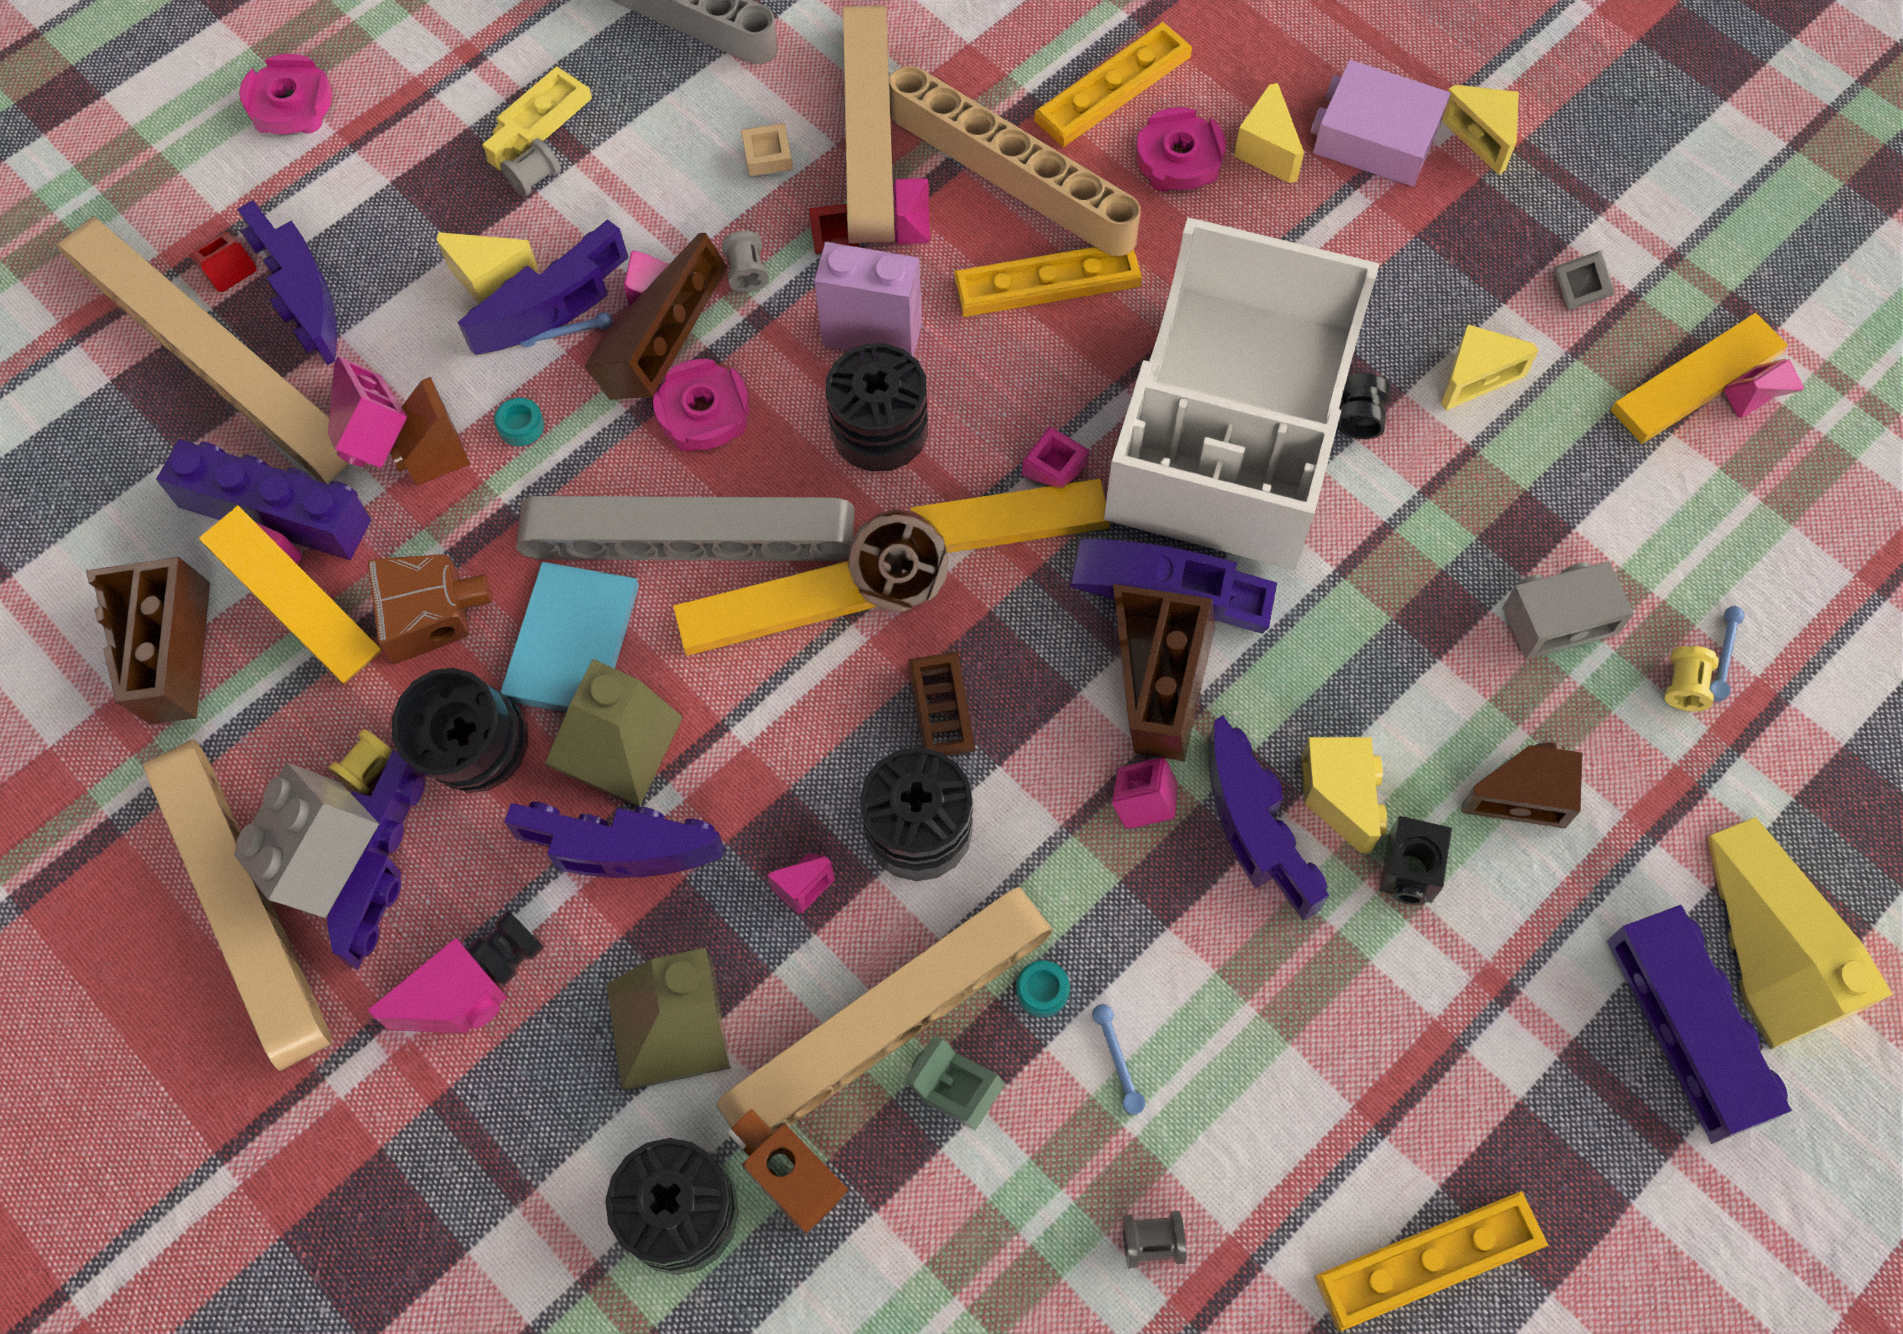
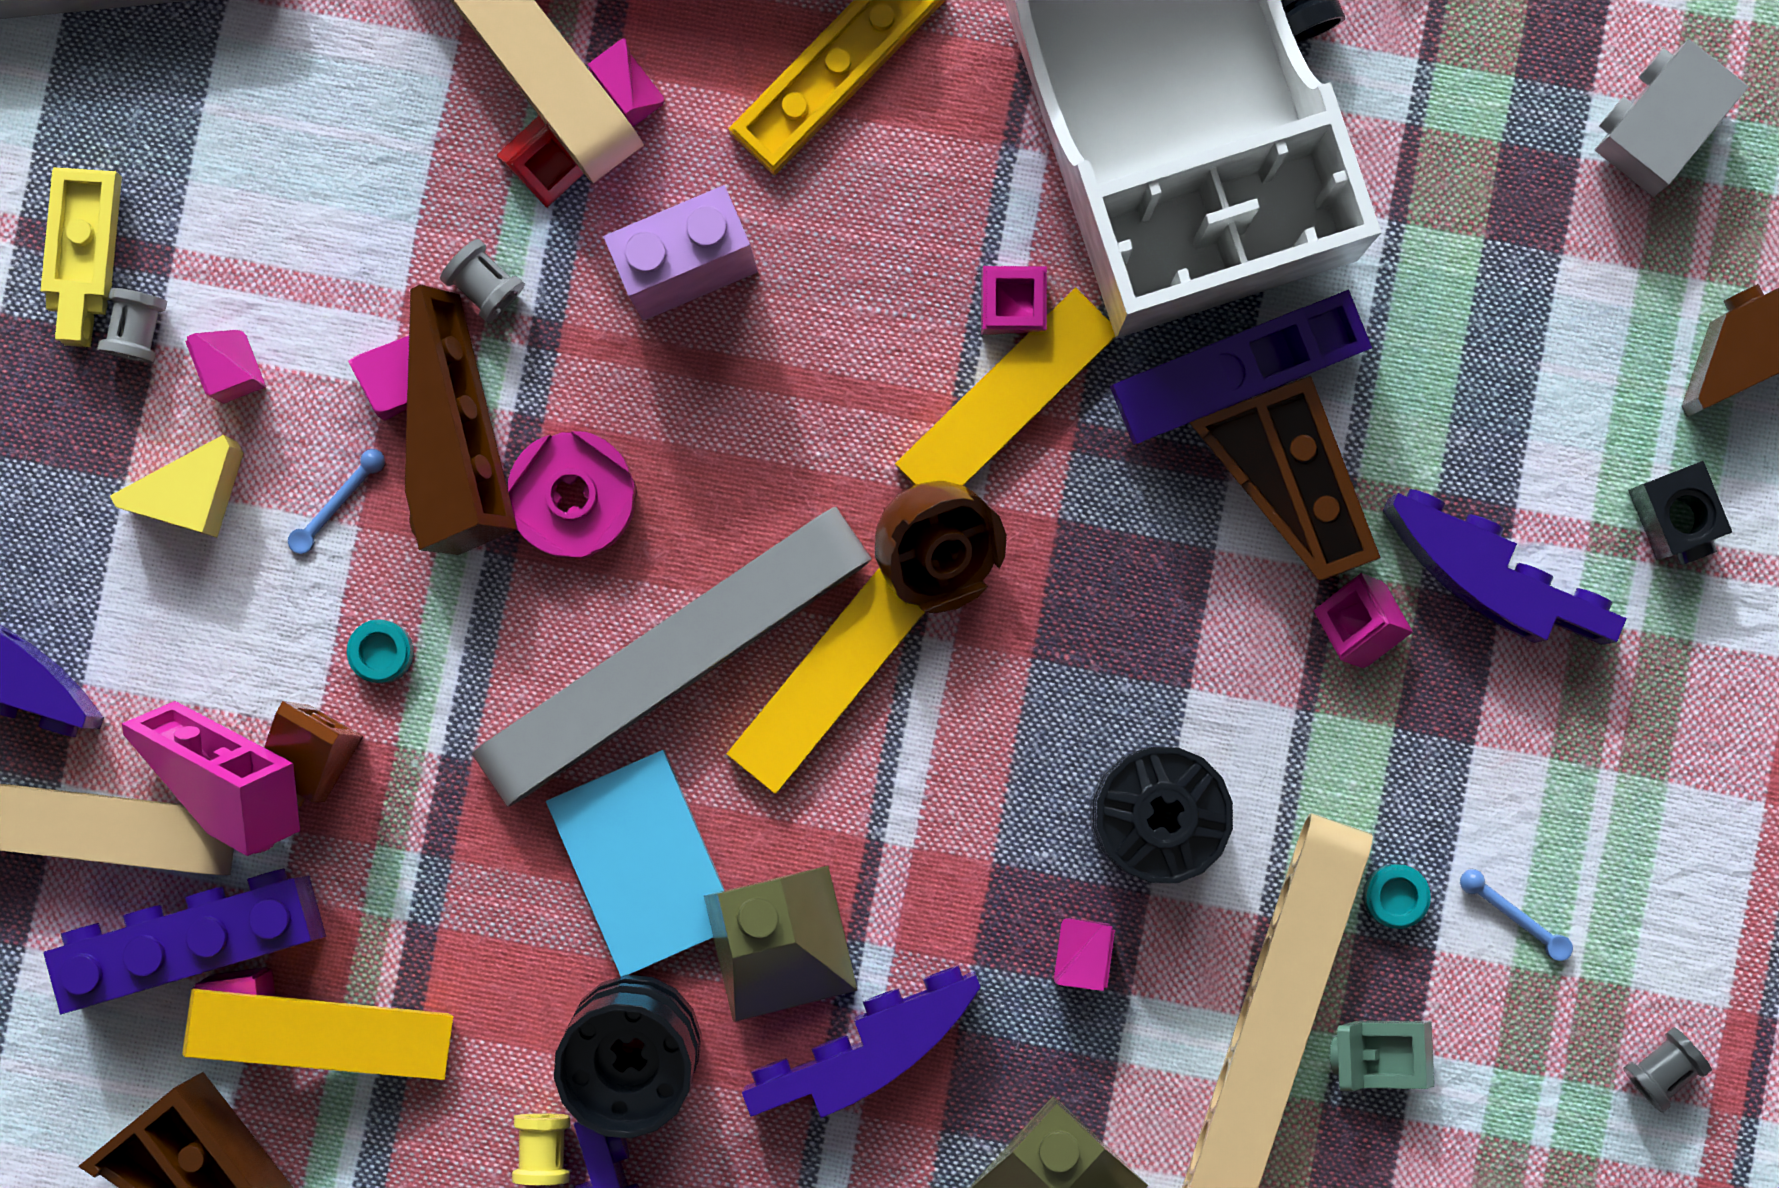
camera: 30 degrees left, 20 degrees up
(422, 603) = (457, 937): dark orange torso -> none
(537, 302) = (284, 504): dark purple slope -> none
(562, 216) = (225, 364): none -> dark pink slope
(767, 149) = (392, 111): tan plate -> none
(877, 406) = (812, 395): black wheel -> none
(938, 665) = (1049, 629): reddish brown slope -> none
(1341, 788) = (1562, 482): light yellow slope -> none

